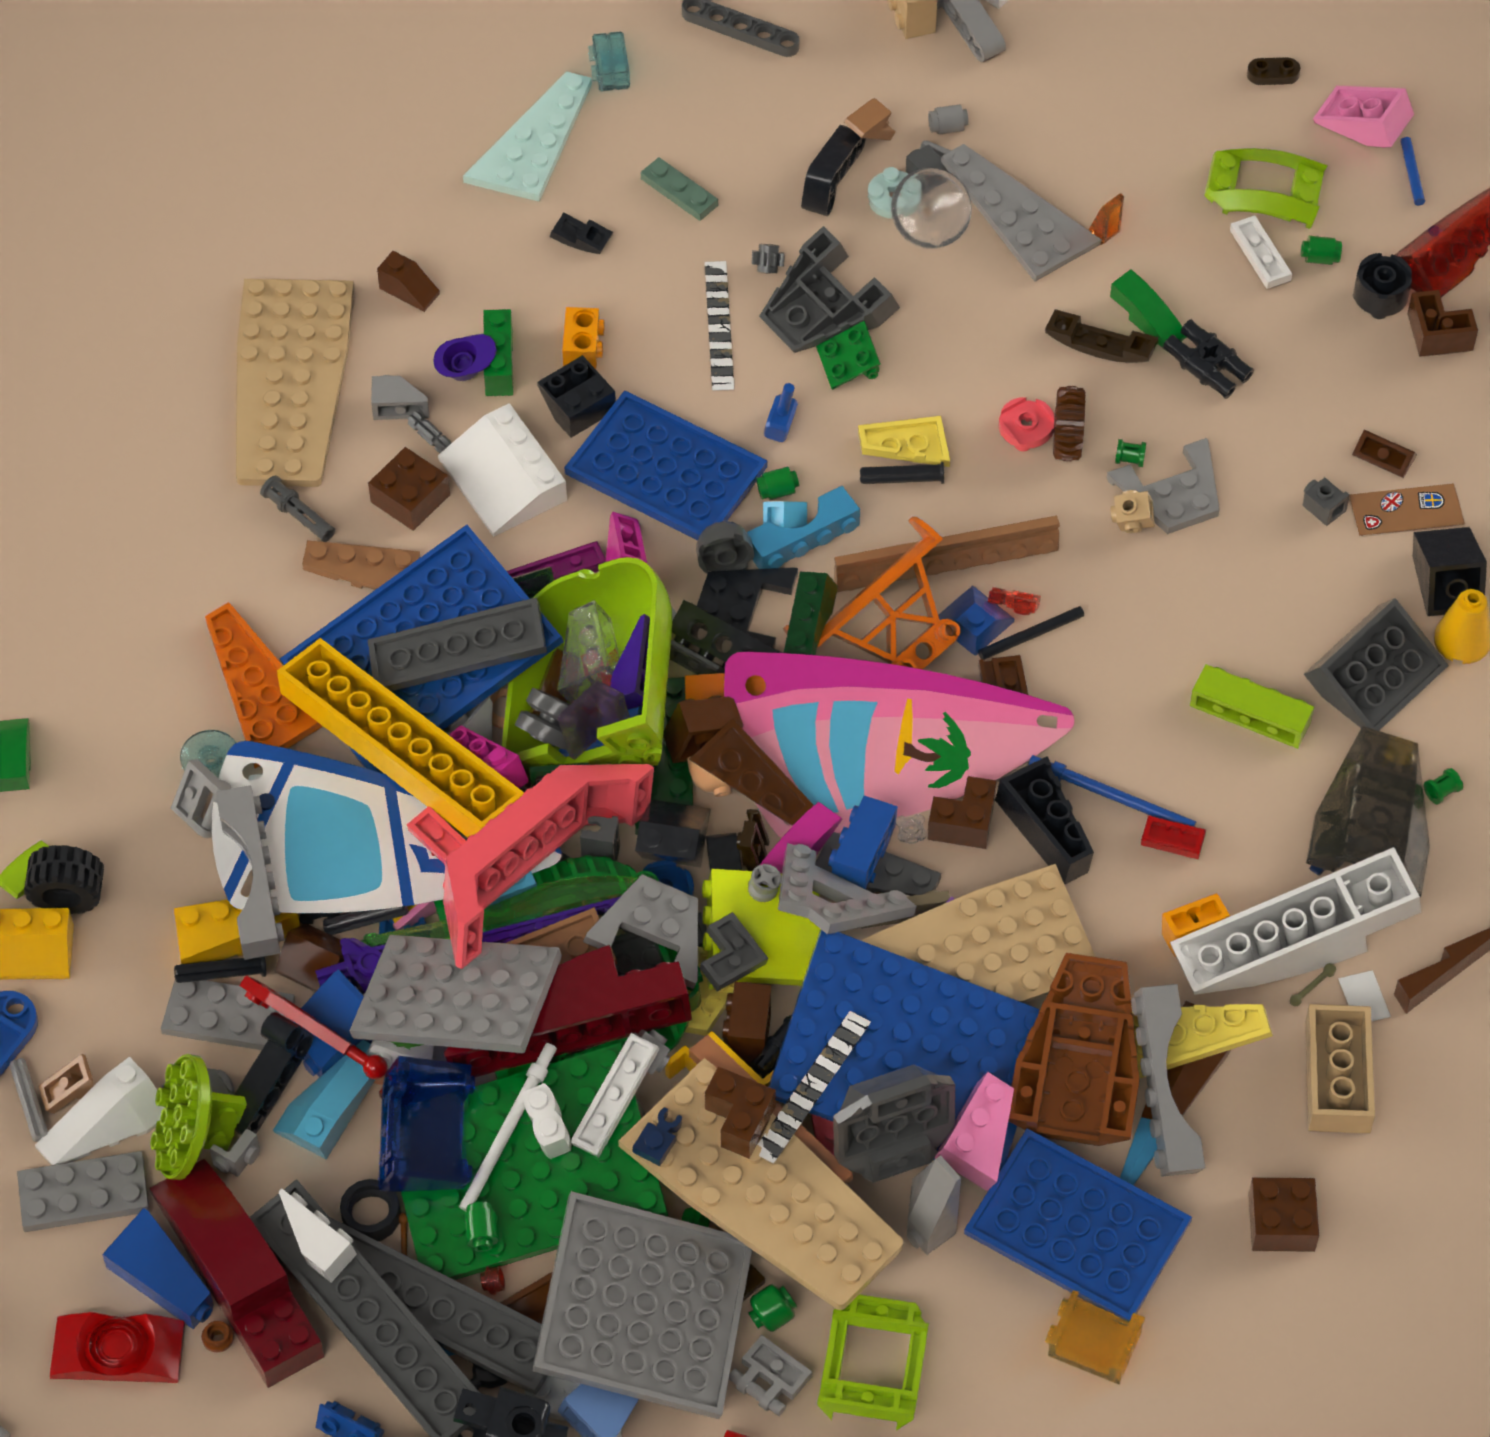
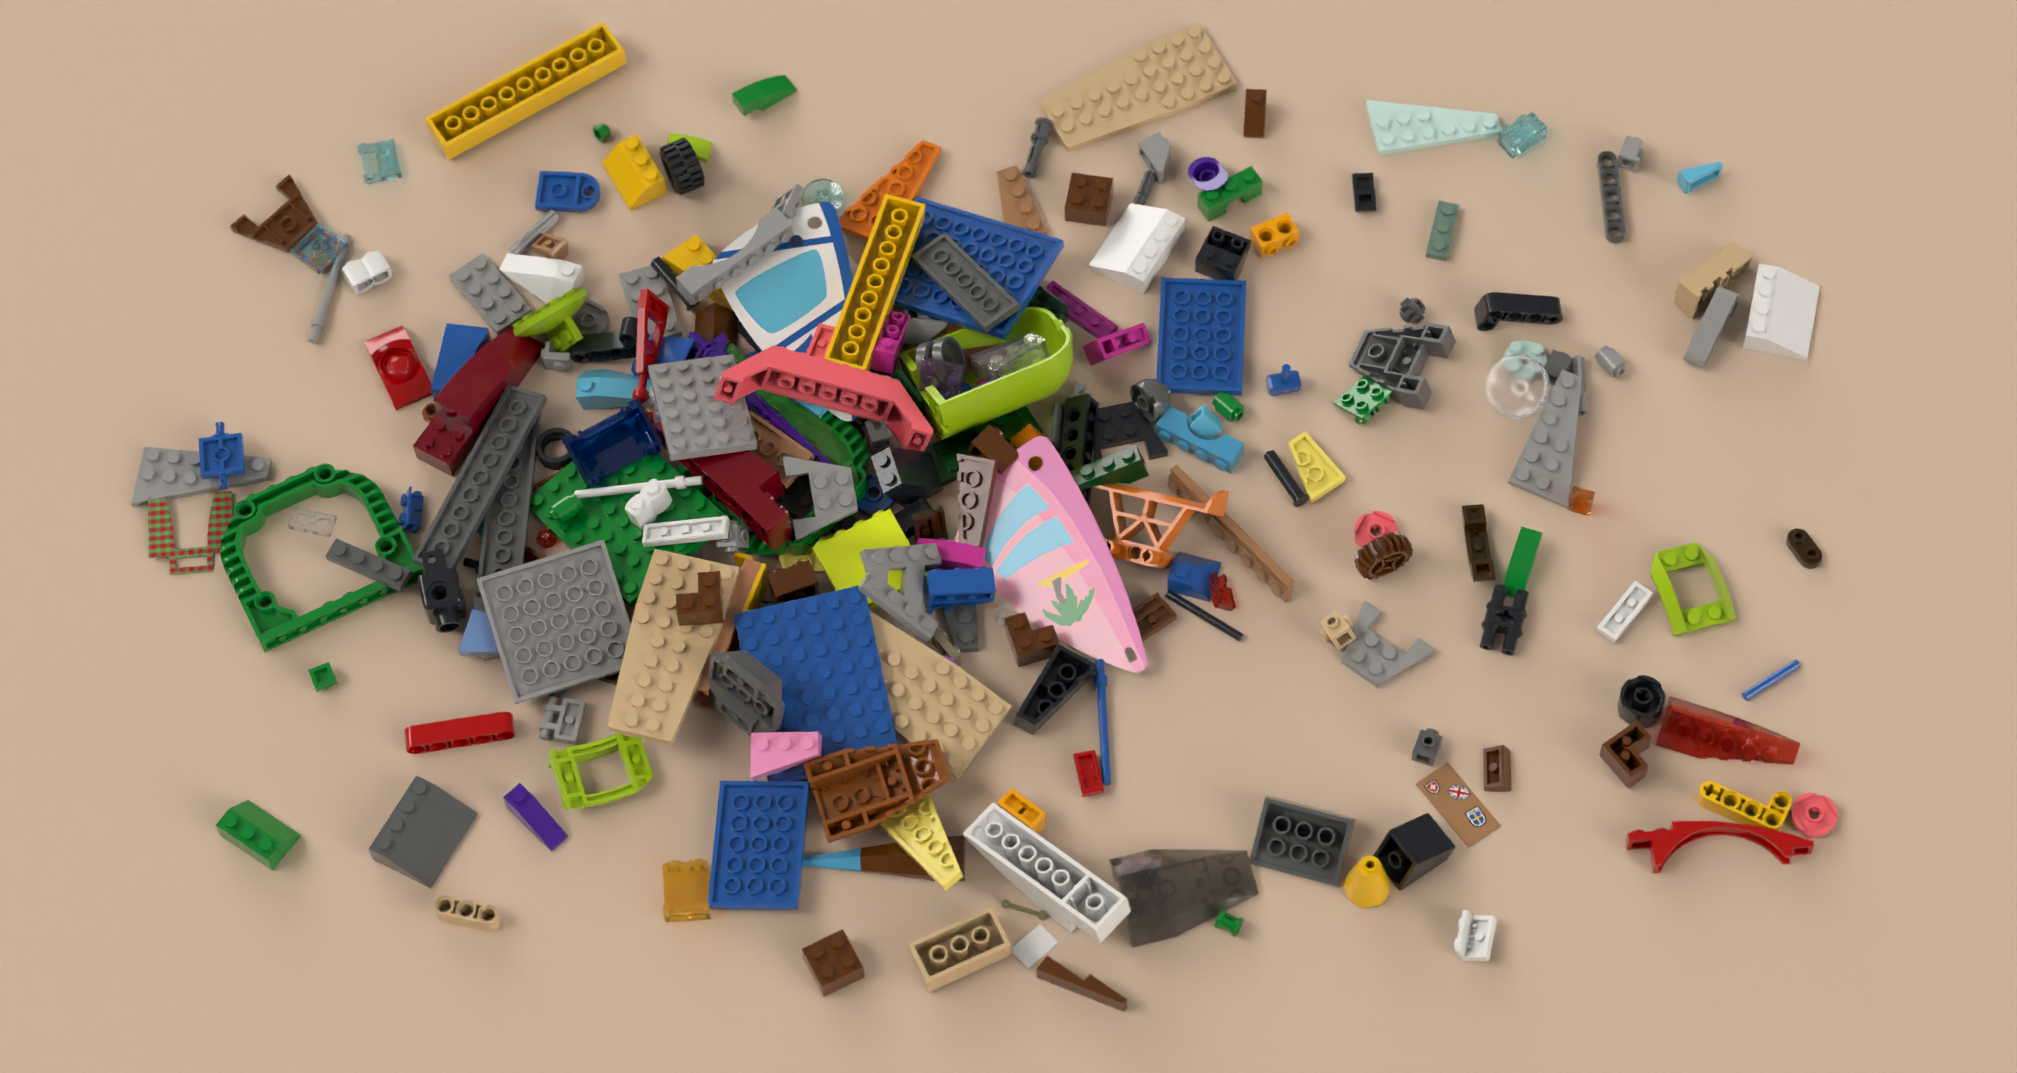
camera: 65 degrees right, 5 degrees up
(320, 1245) = (504, 424): white slope -> none
(657, 1140) = (660, 567): dark blue plate -> none
(719, 325) = (1343, 311): sticker -> none
(738, 953) = (831, 554): dark grey plate -> none
(765, 875) = (894, 538): light grey wheel -> none
(772, 1307) = (603, 697): green head -> none
(812, 1086) = (750, 636): sticker -> none
(871, 121) = (1567, 314): medium nougat slope -> none
(933, 1206) = (718, 752): light grey wedge -> none
(1130, 453) = (1387, 601): green bush -> none
(1177, 1144) = (848, 875): light grey arch -> none
(1252, 706) = (1222, 775): lime brick -> none
(1321, 250) = (1651, 650): green brick -> none
(1366, 114) = (1799, 625): bright pink slope -> none

